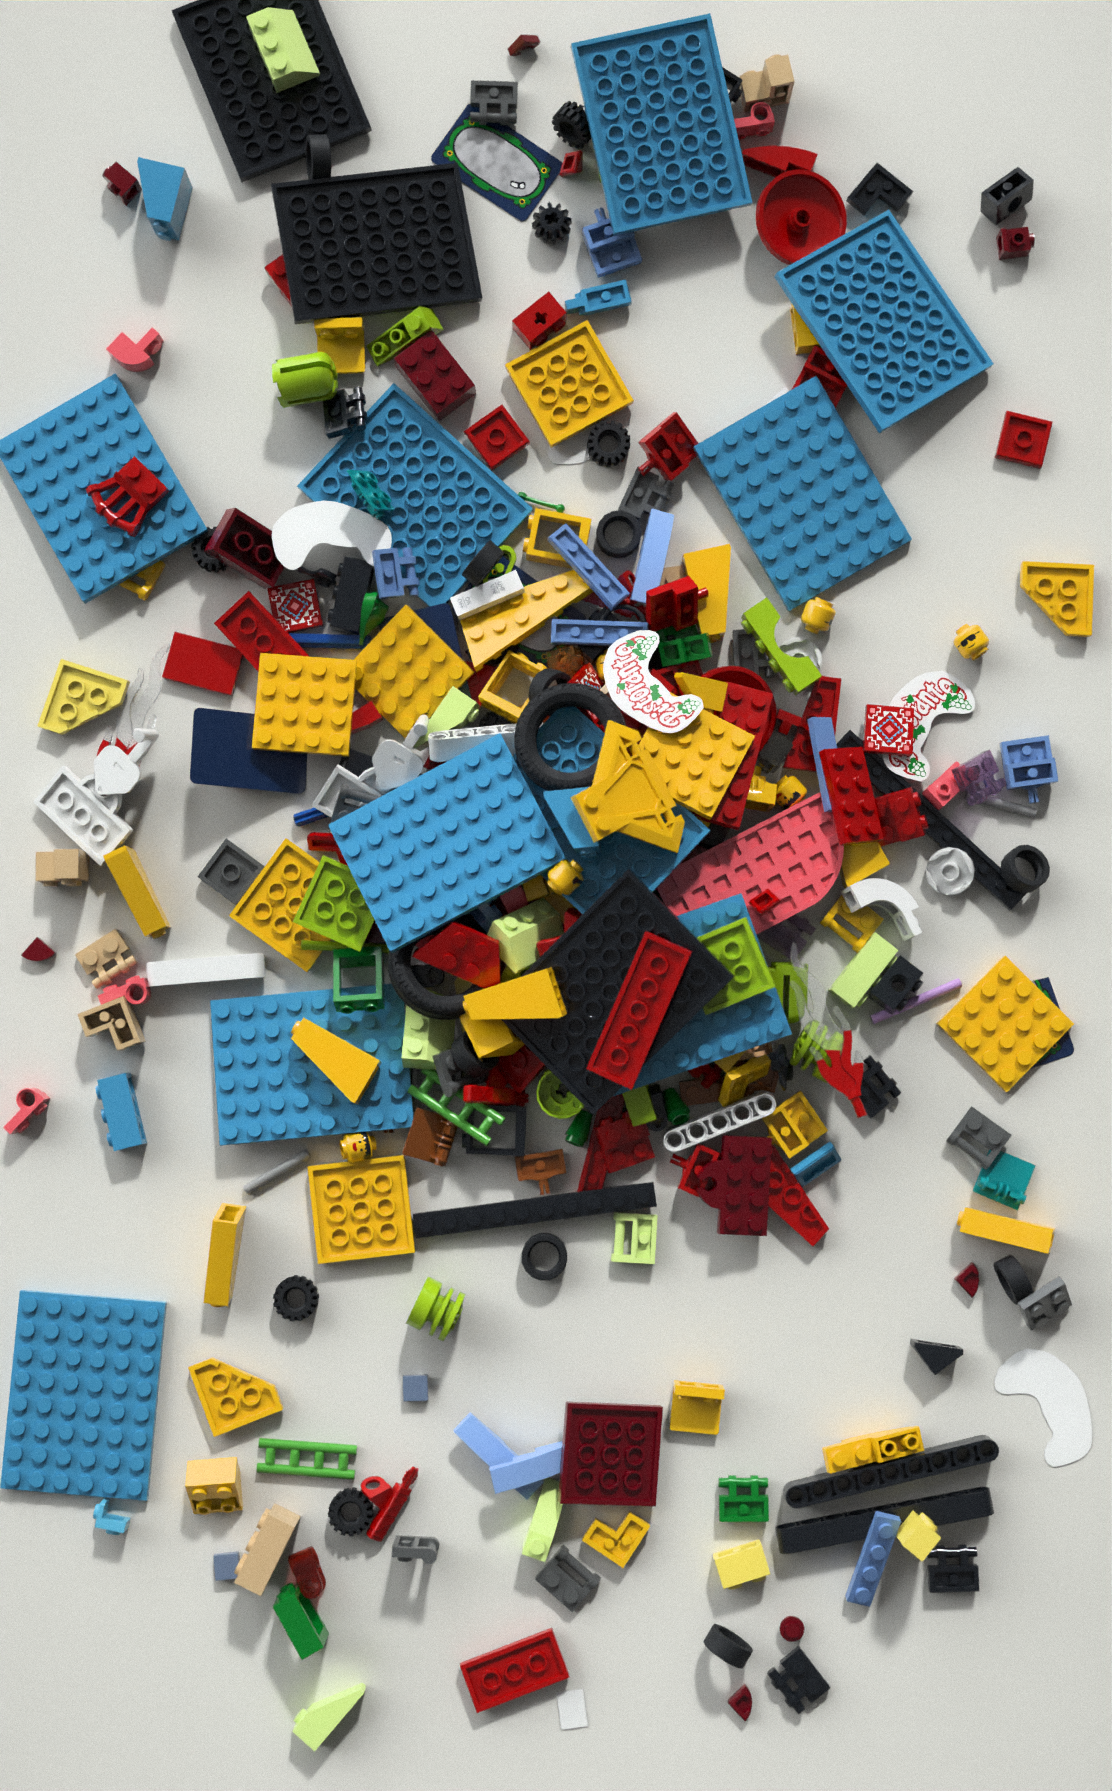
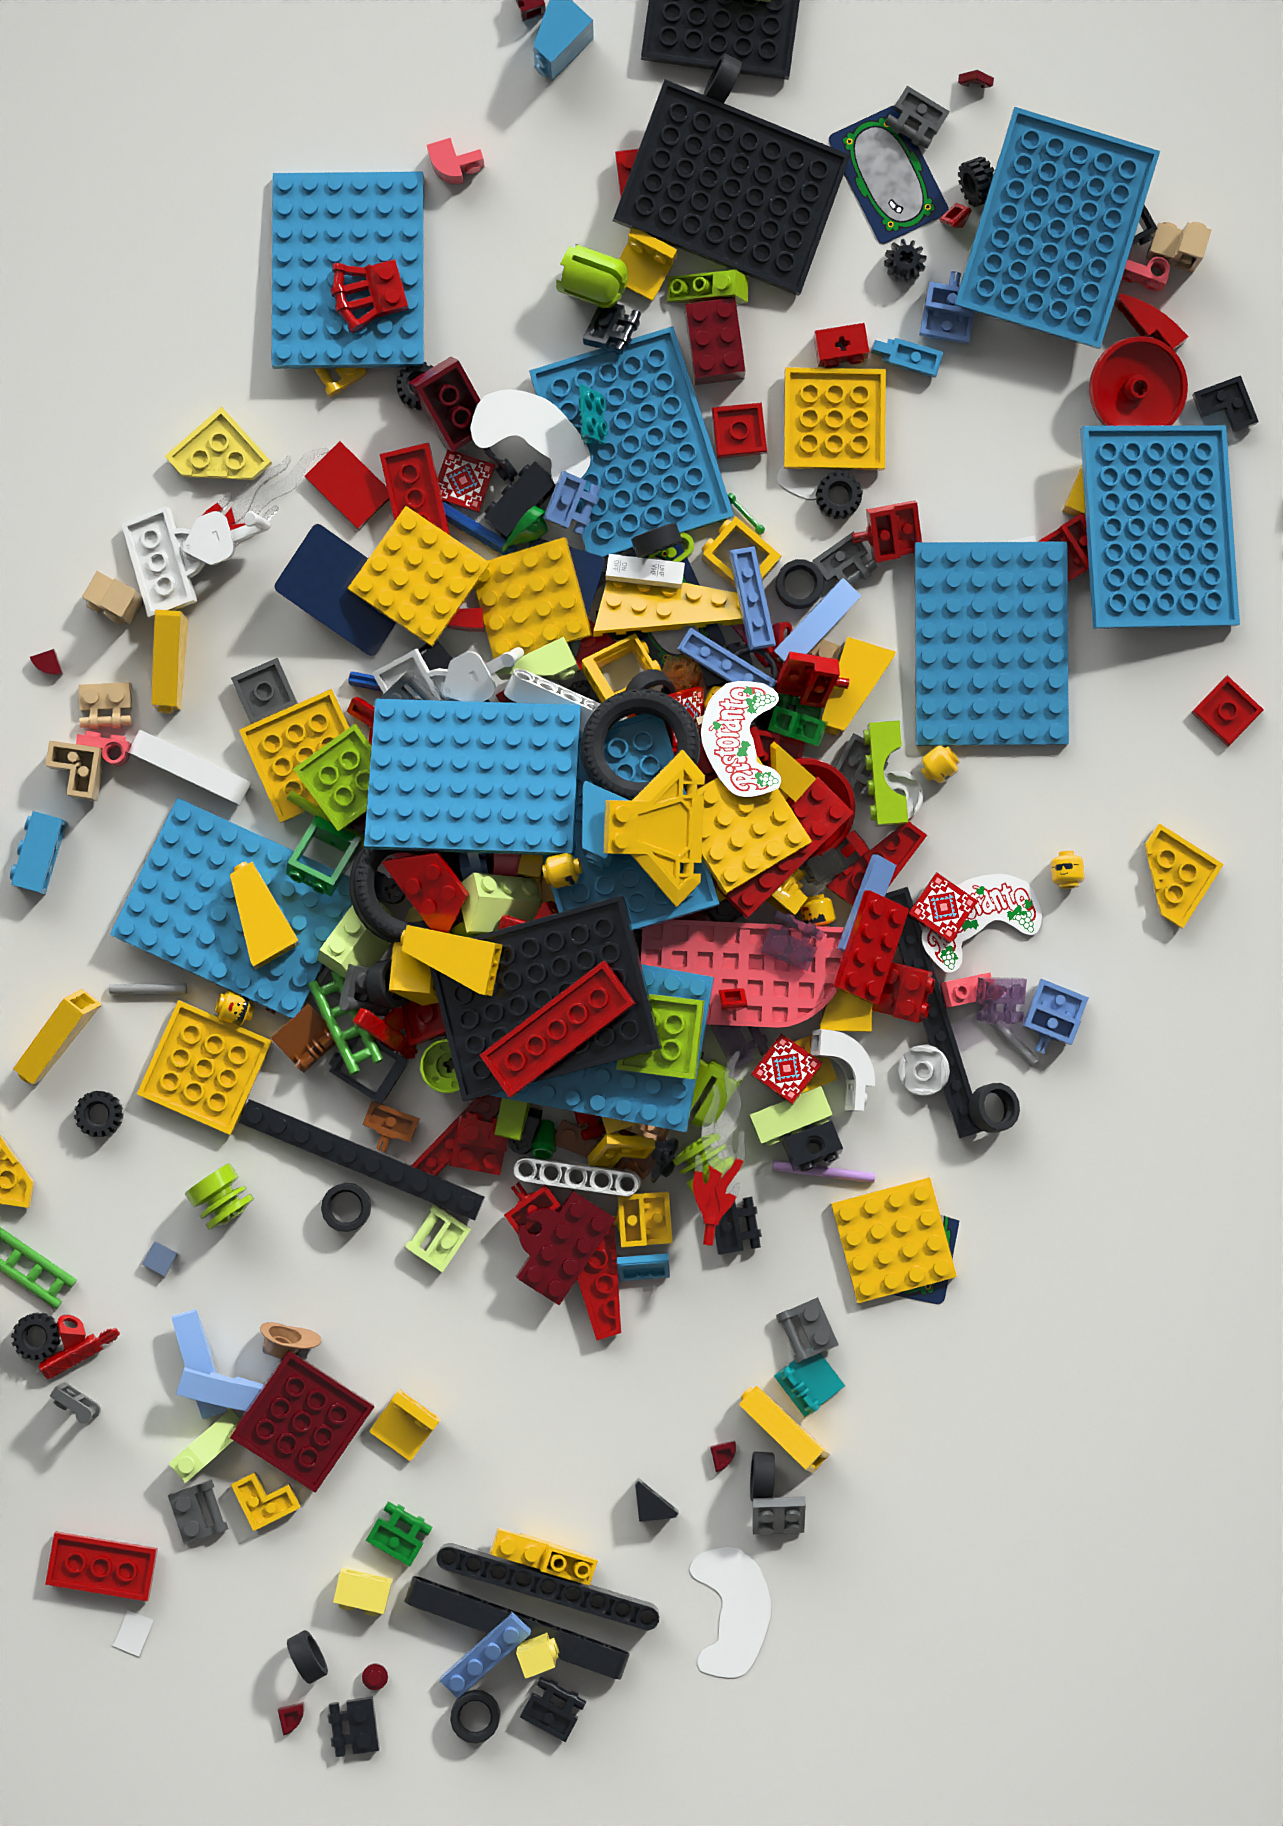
camera: 25 degrees right, 0 degrees up
(556, 1394) = (283, 1338): none -> medium nougat piece
(579, 1129) = (445, 1110): green cone -> none
(787, 834) = (790, 949): none -> clear purple plate
(839, 934) = (786, 1069): none -> red tile
(899, 1631) = (460, 1730): none -> black tyre

